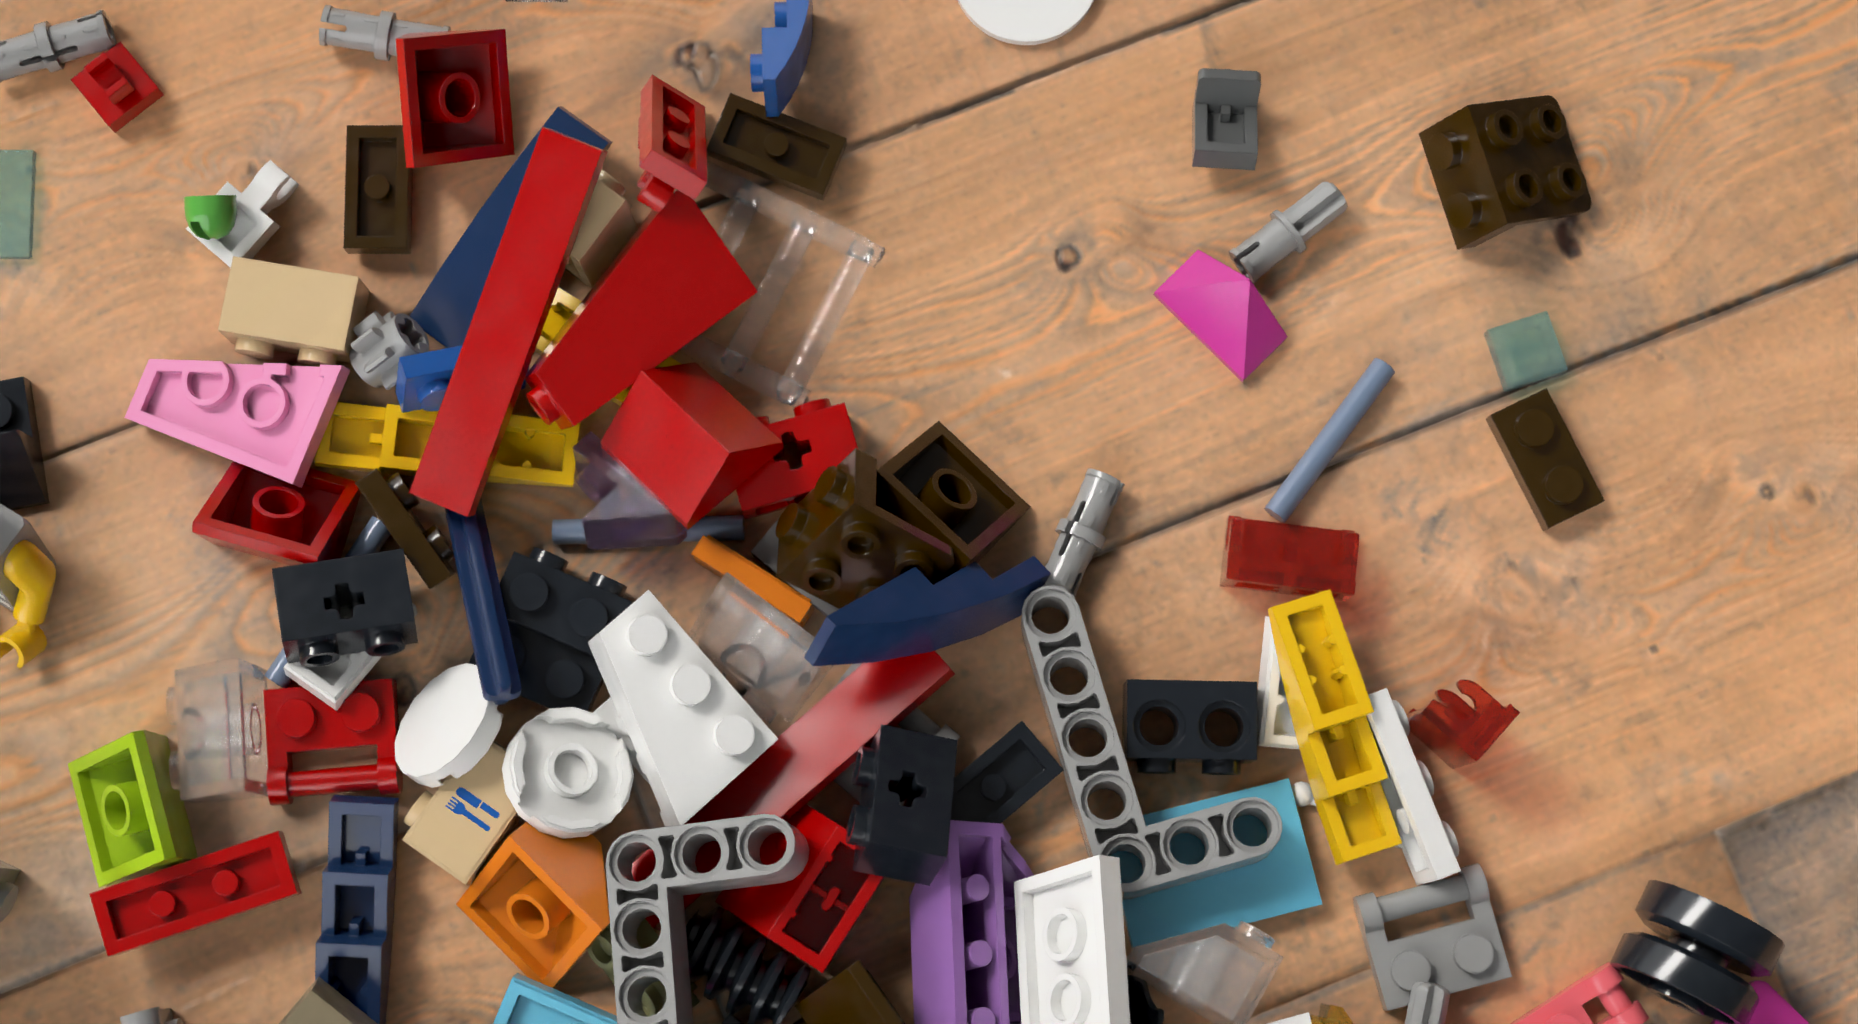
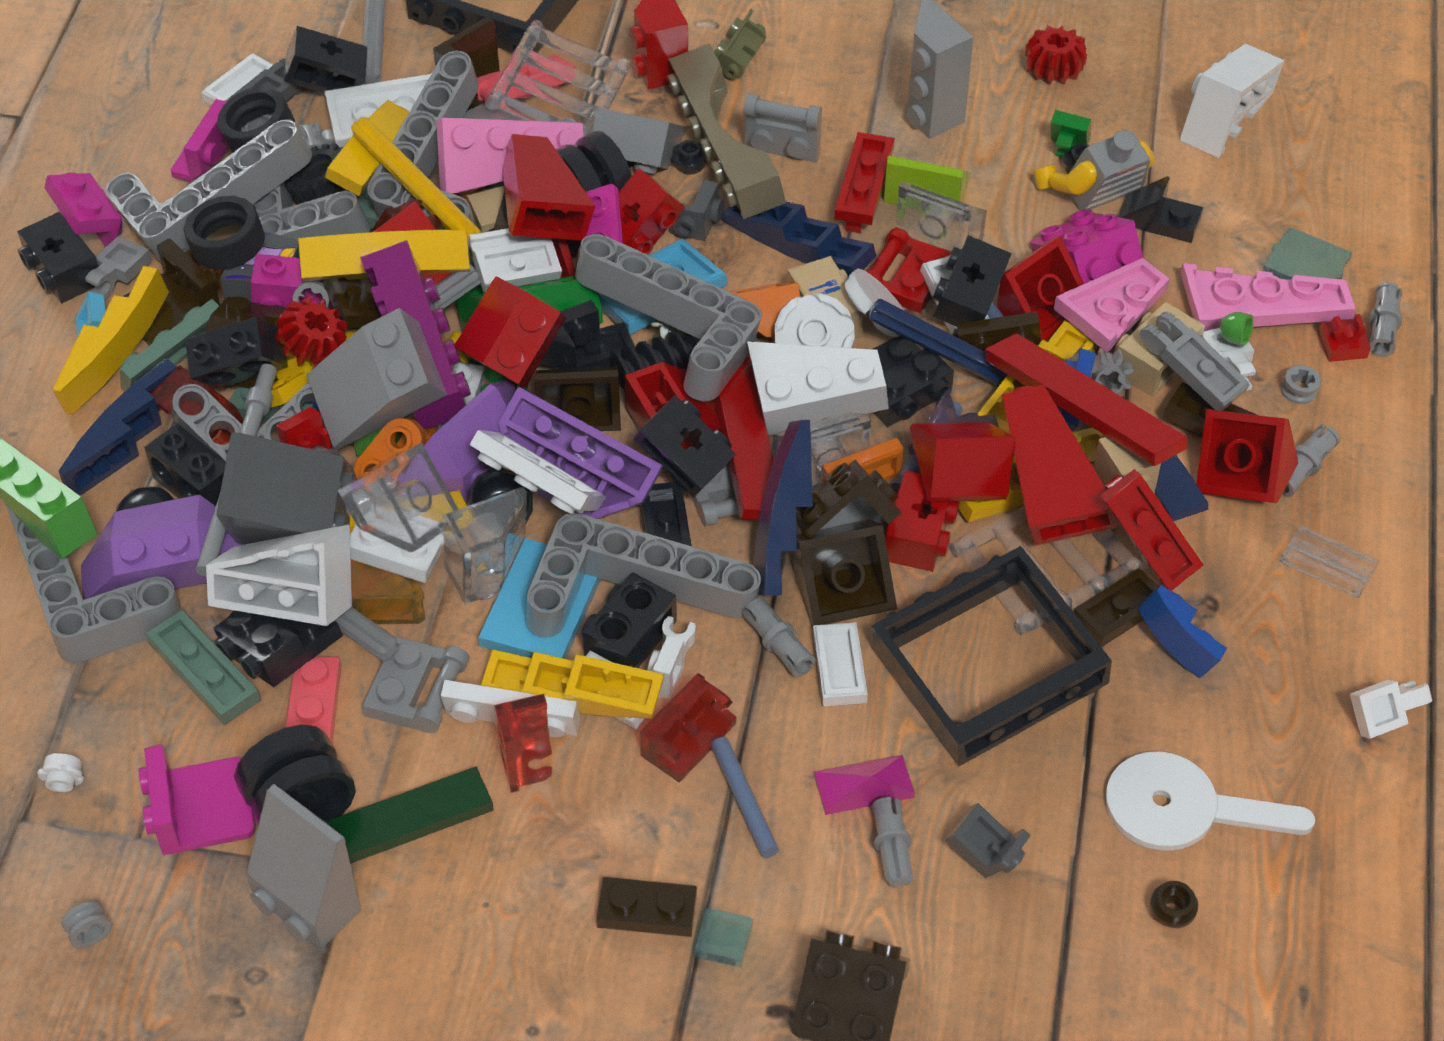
camera: 125 degrees right, 30 degrees down
(117, 241) = (1265, 297): none -> bright pink wing
(137, 508) = (1095, 242): none -> dark pink bracket
(249, 89) = (1297, 394): none -> light grey bush
(324, 227) = (1194, 360): none -> light grey hinge
(1007, 167) = (1023, 709): none -> black window
(1068, 441) = (839, 664): none -> white tile
(1216, 639) = (671, 658): none -> white plate
(1623, 818) = (413, 814): none -> dark green tile
(1801, 851) = (301, 871): none -> light grey slope

